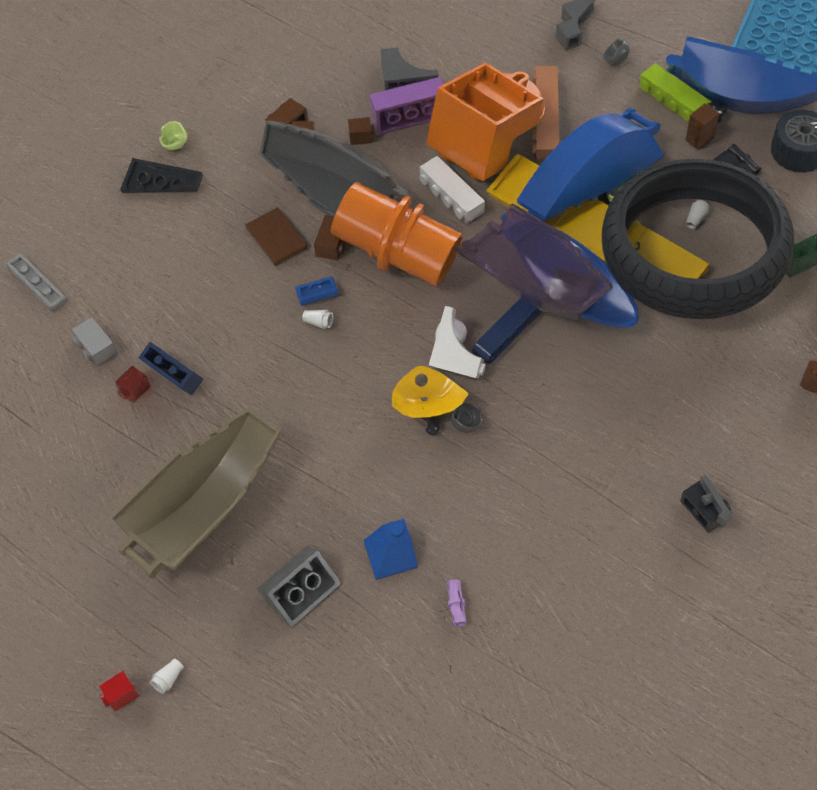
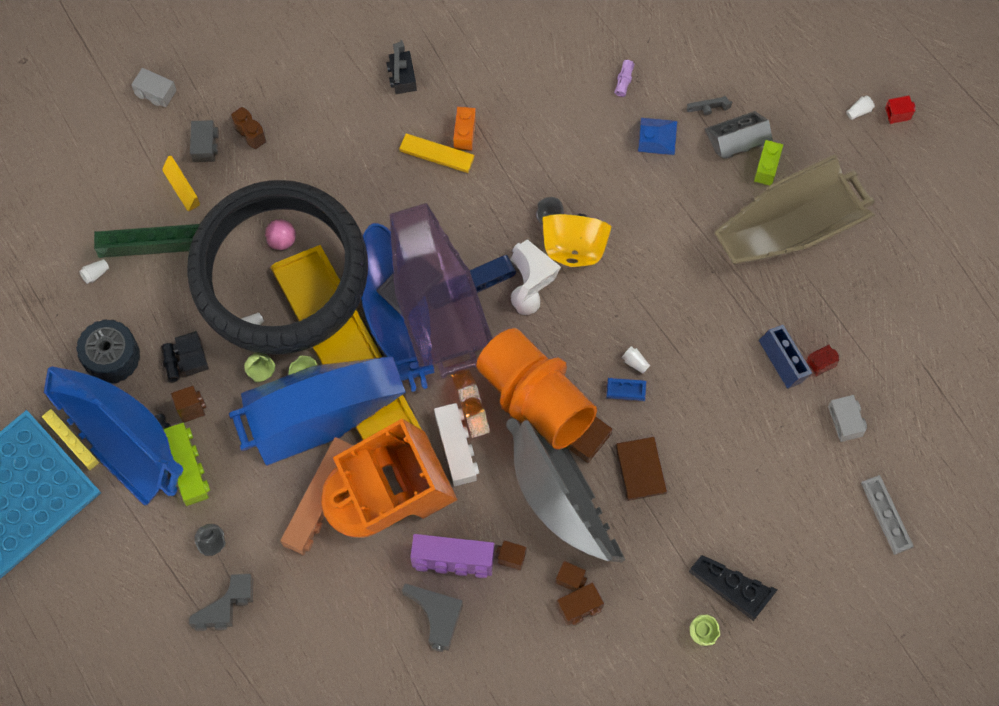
camera: 160 degrees left, 10 degrees up
(252, 562) = (768, 162): none -> lime brick
(348, 609) = (706, 105): none -> dark grey piece
(445, 212) = (470, 402): none -> clear orange arch
(602, 468) = (464, 128): none -> orange brick
(617, 438) = (437, 153): none -> yellow tile

